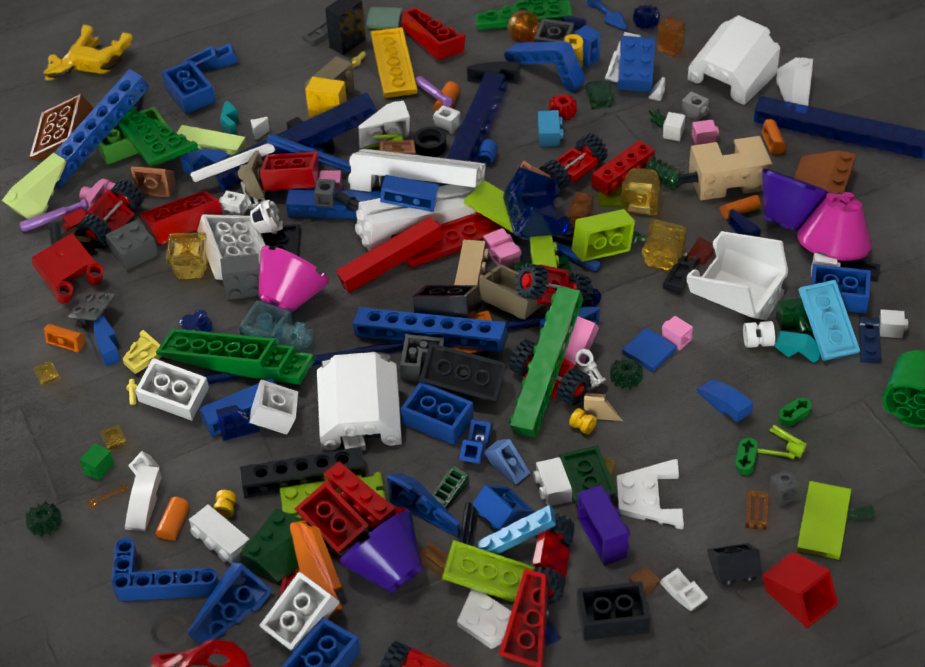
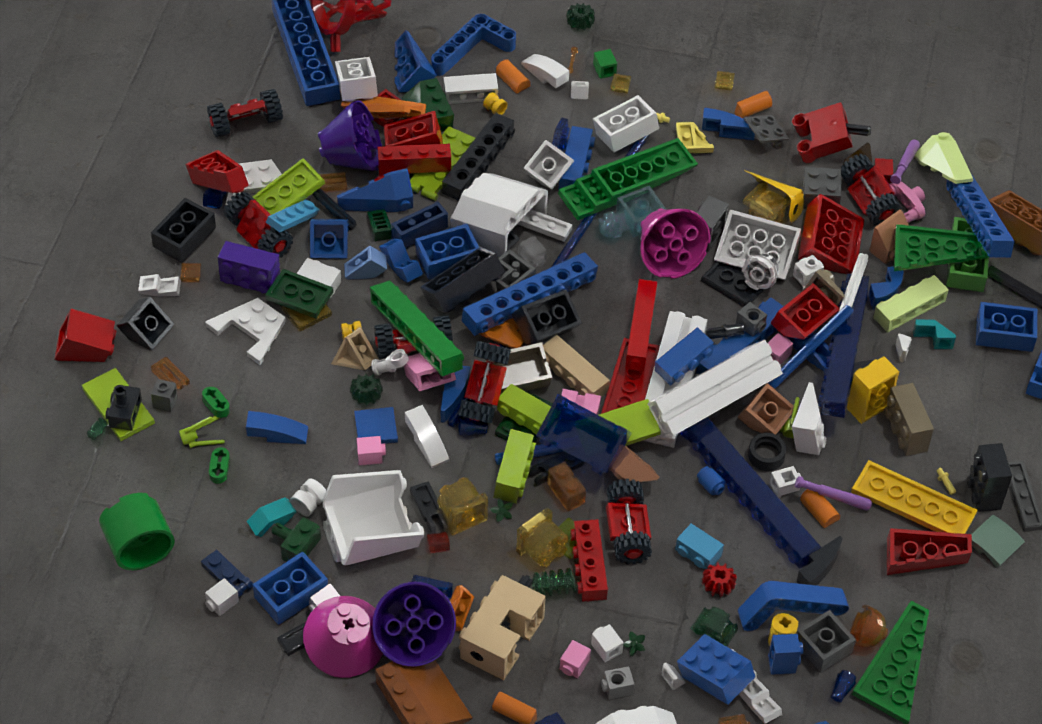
camera: 125 degrees right, 5 degrees up
(164, 253) = (795, 194): none -> yellow piece
(196, 322) = (693, 183): clear blue plate -> none
(427, 450) = (419, 224): none -> dark blue brick
(625, 312) = (426, 436): none -> white slope
(828, 497) = (124, 407): none -> black brick
(829, 320) = (266, 544): medium azure tile -> none

